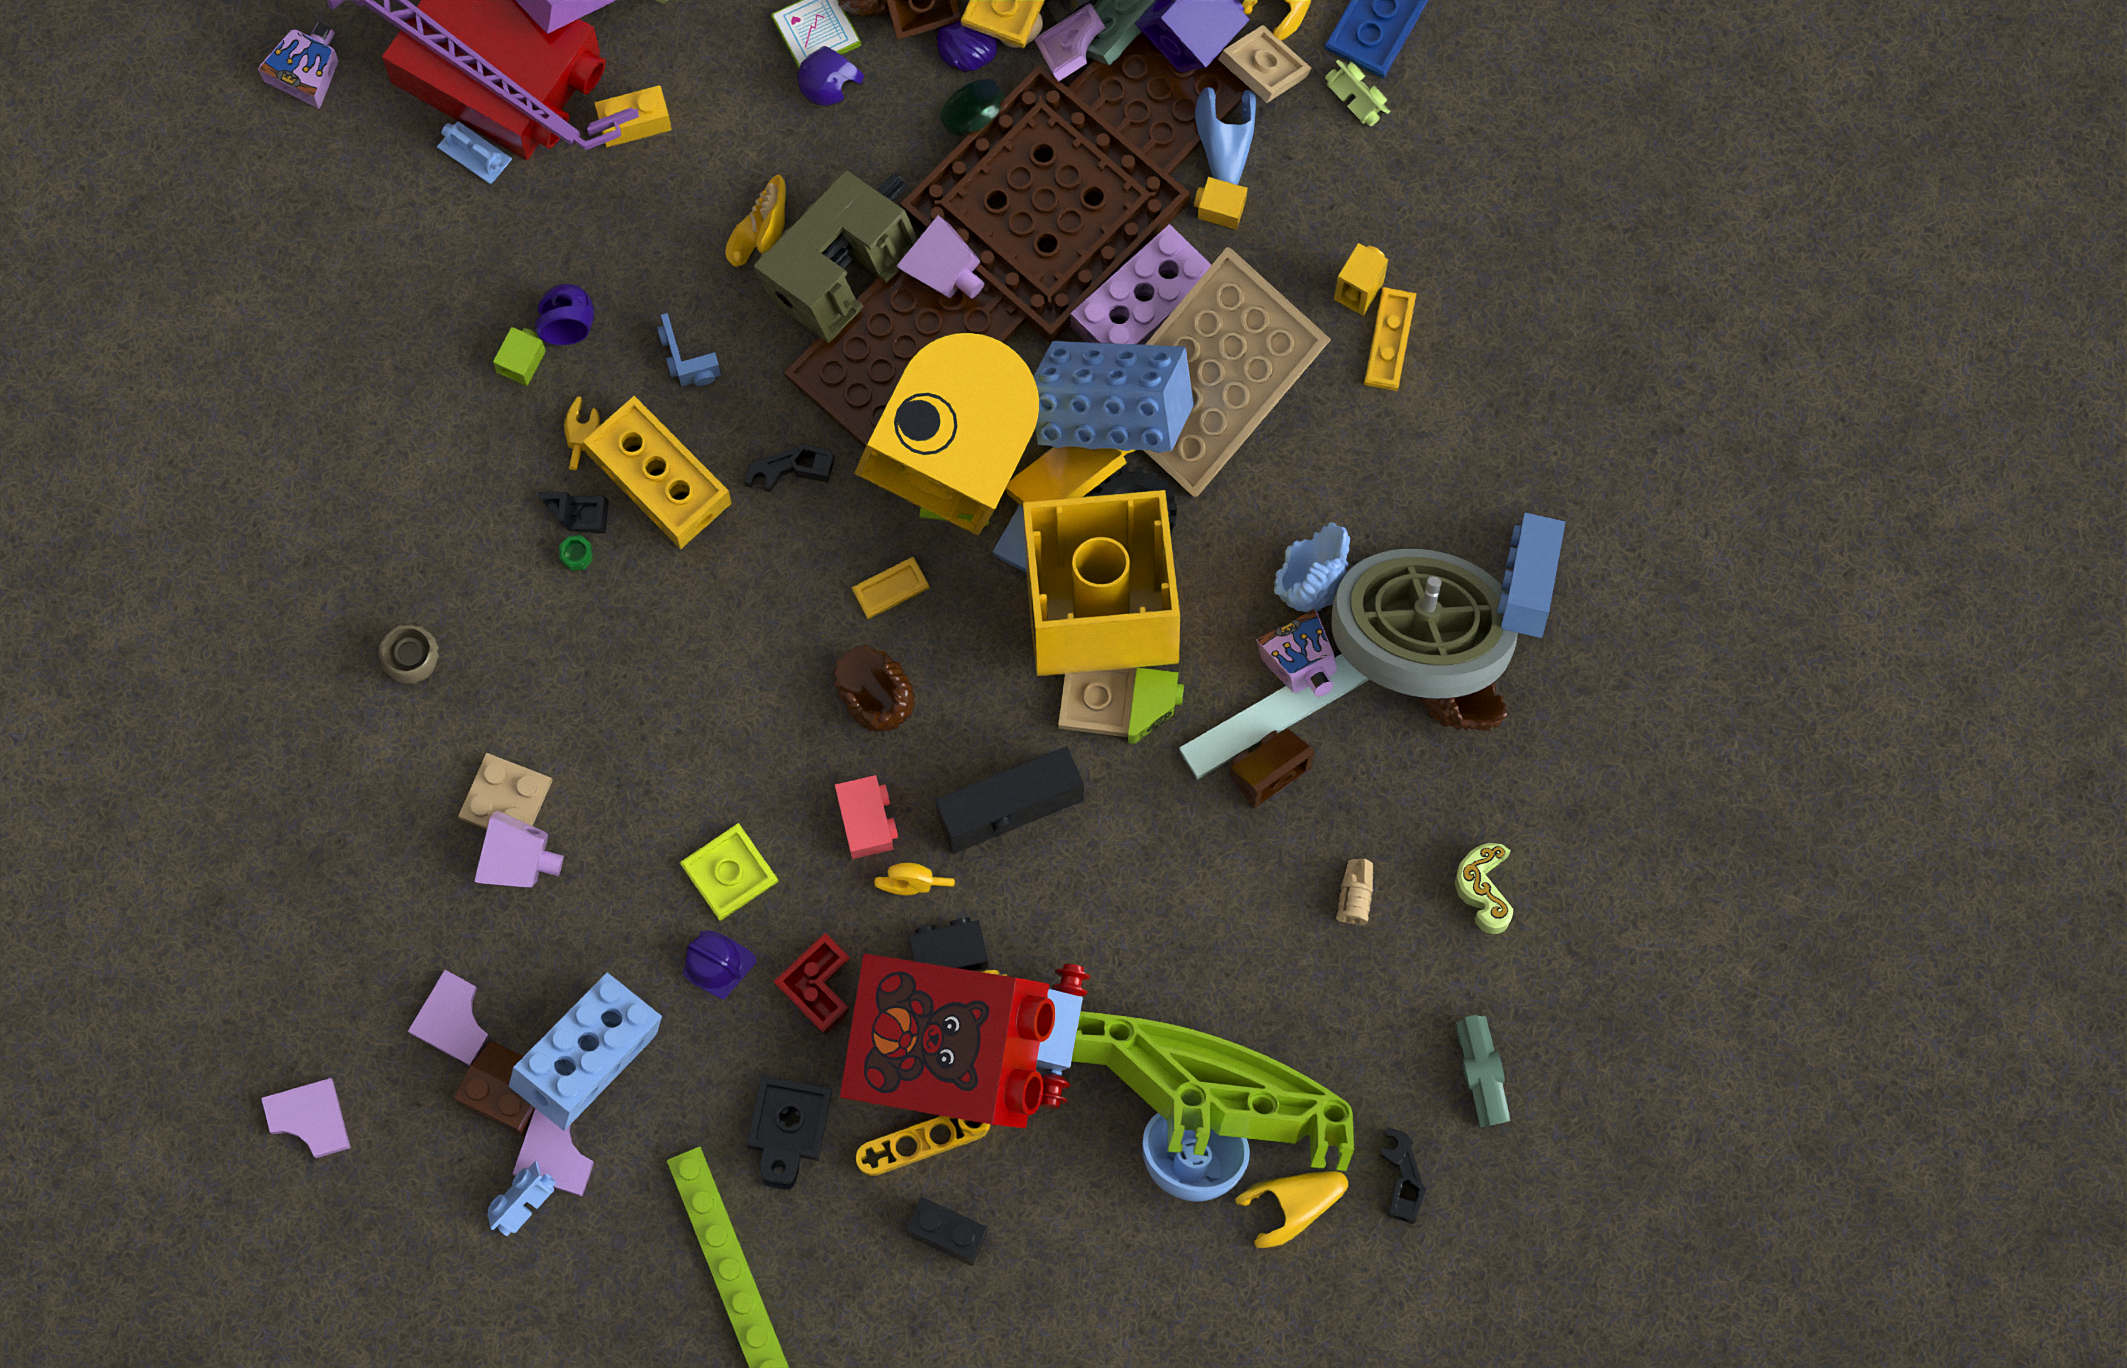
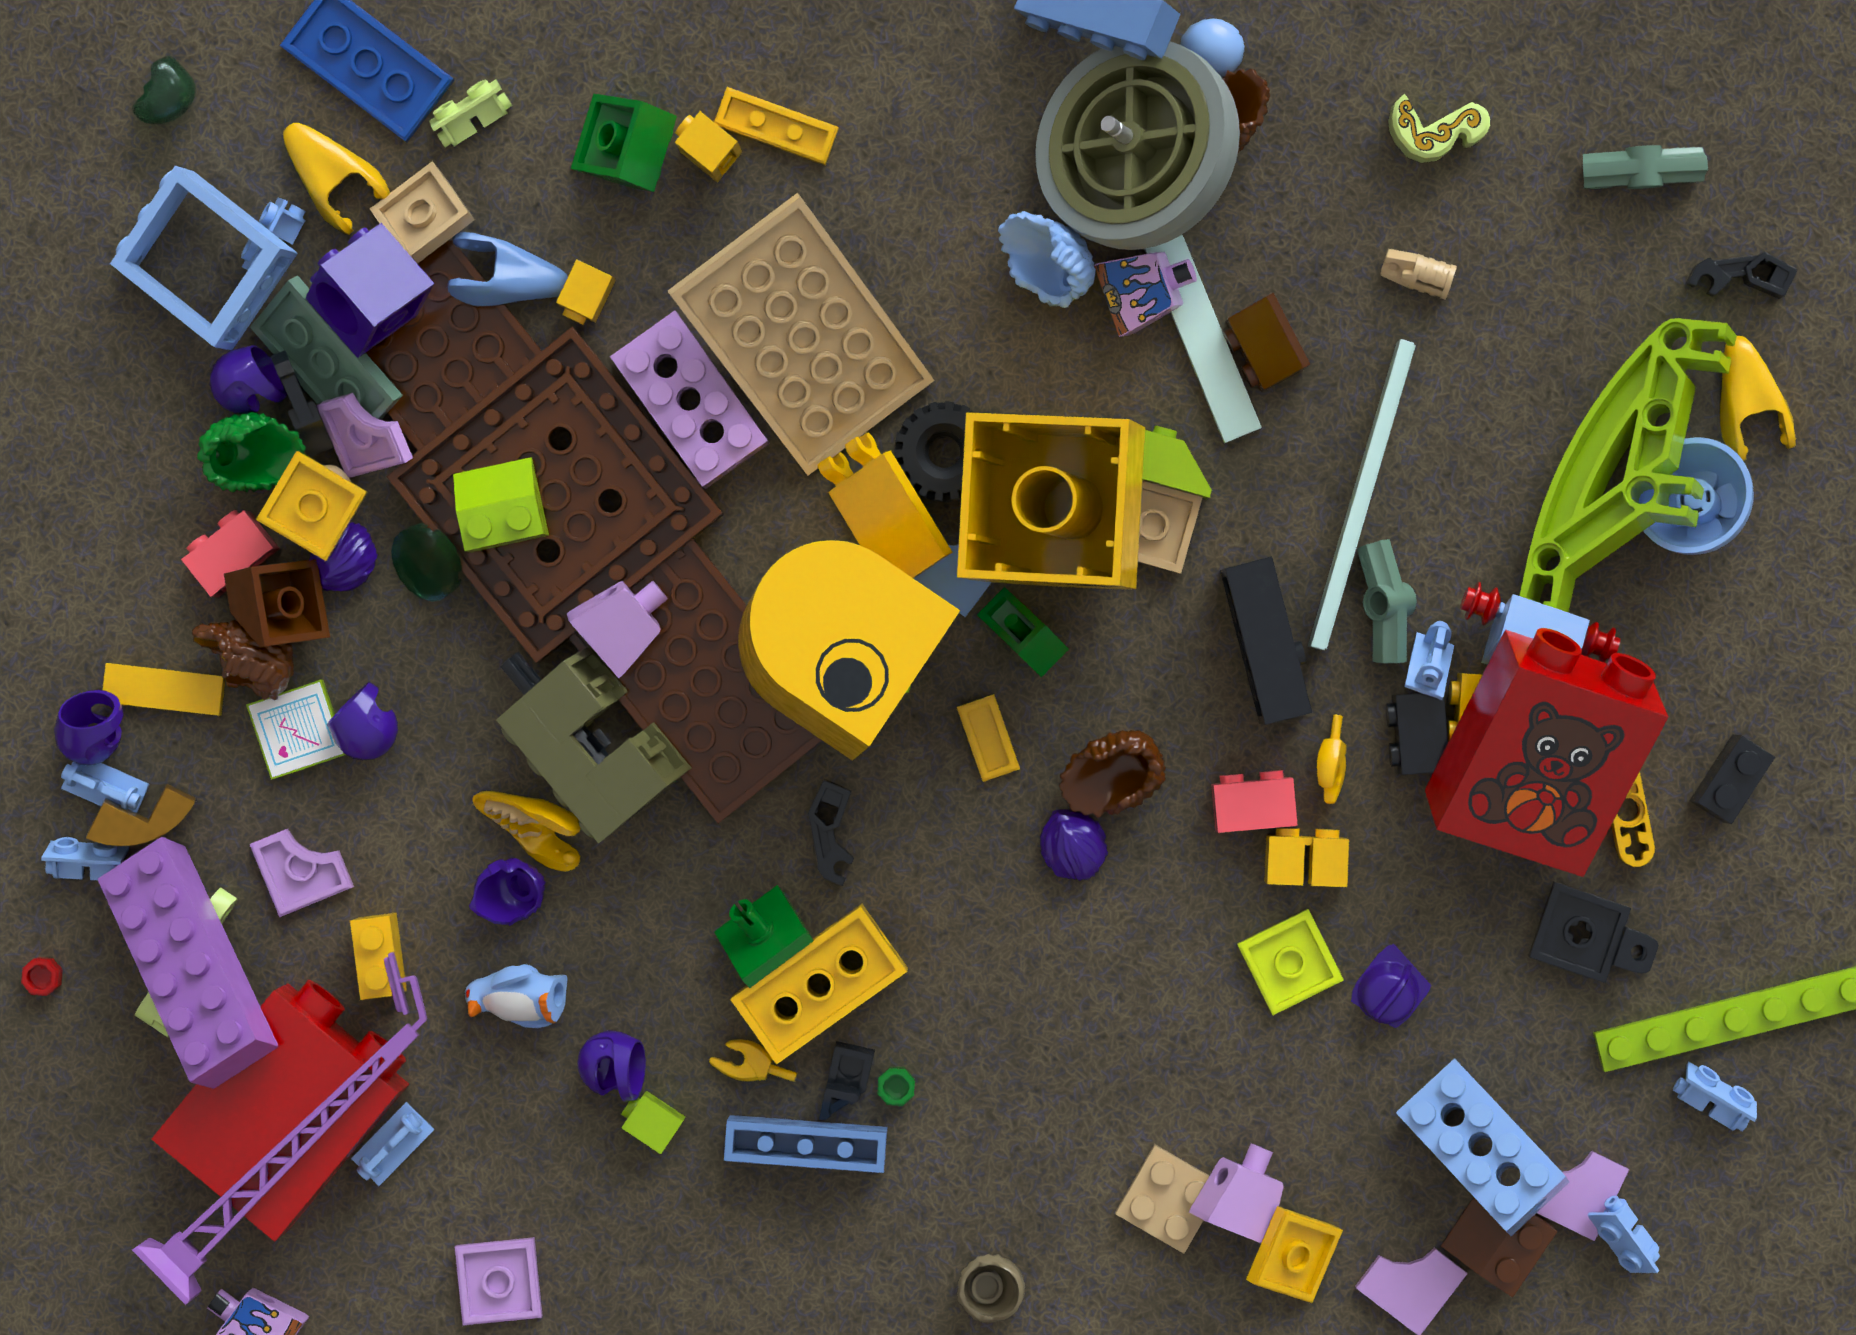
camera: 85 degrees left, 15 degrees up
(366, 253) = (498, 1281): none -> lavender tile
(468, 908) = (1294, 1254): none -> yellow tile
(516, 481) = (805, 1143): none -> medium blue brick
(614, 232) = (519, 996): none -> light blue animal
(664, 1248) = (1732, 1106): none -> light blue hinge
(692, 418) = (762, 935): none -> green tile
(693, 47) = (296, 874): none -> lavender tile
(698, 370) = (701, 917): medium blue bracket -> none
(701, 210) = (507, 892): none -> dark purple hair
(806, 670) = (1073, 845): none -> dark purple hair
(806, 987) = (1432, 894): red brick -> none
(821, 869) = (1326, 858): none -> yellow piece
(985, 601) = (1023, 632): none -> green slope
(1013, 948) = (1430, 661): none -> light blue hinge
(1027, 152) = (499, 505): none -> lime slope
(1060, 904) = (1386, 602): none -> sand green piece
(1113, 396) = (821, 453): medium blue brick -> none
(1151, 869) = (1361, 494): none -> light aqua tile
(1353, 216) = (624, 141): none -> green slope
(1523, 688) = (1216, 43): none -> light blue hair

